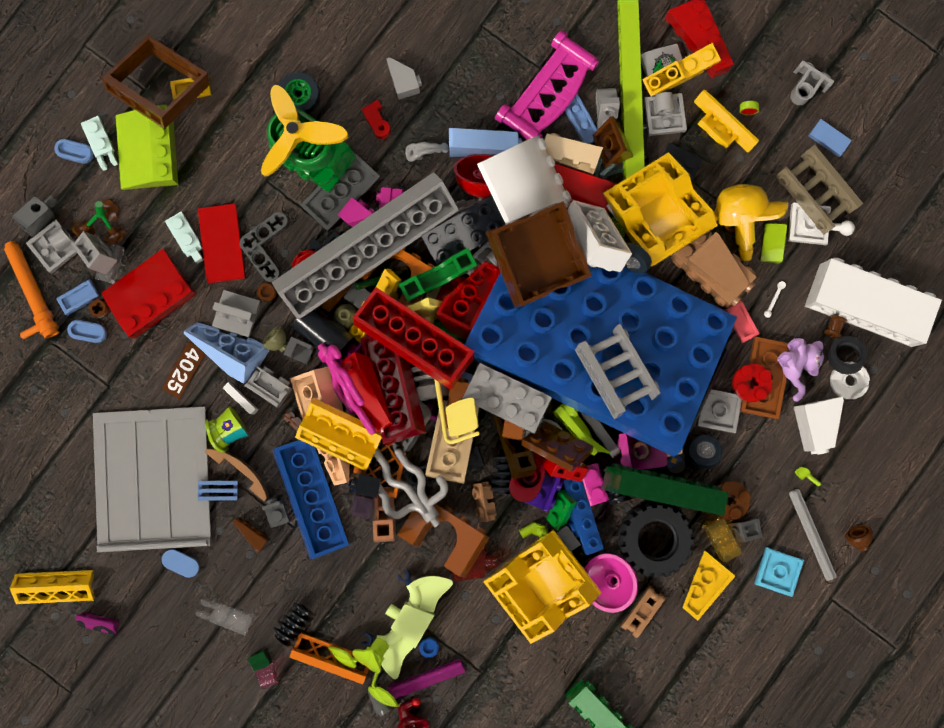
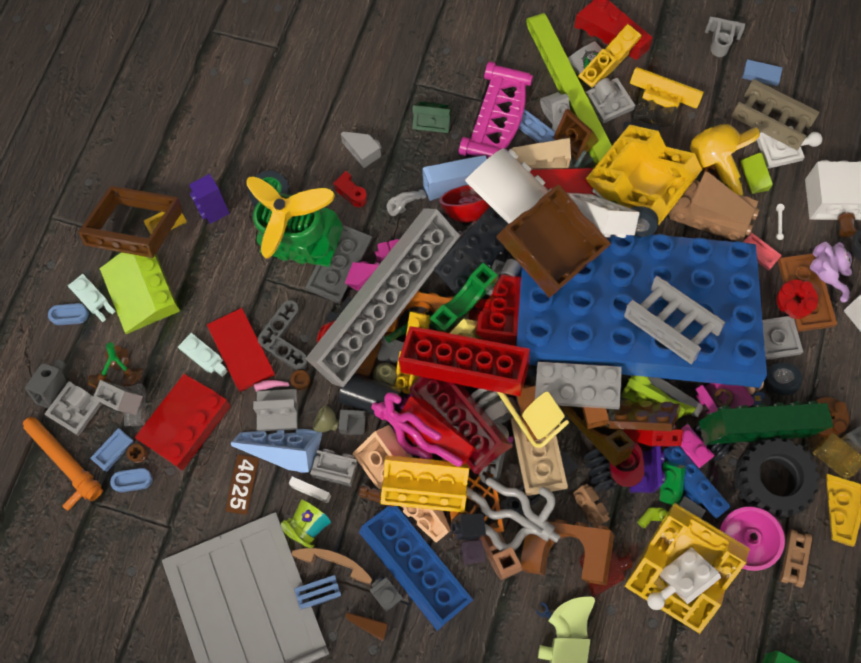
camera: 15 degrees left, 15 degrees down
(236, 84) = (208, 199): none -> dark purple wedge
(237, 286) = (267, 384): none -> bright pink helmet
(483, 69) = (431, 116): none -> dark green bracket
(537, 596) = (687, 577): none -> white plate
(749, 107) = (681, 70): lime tile -> none

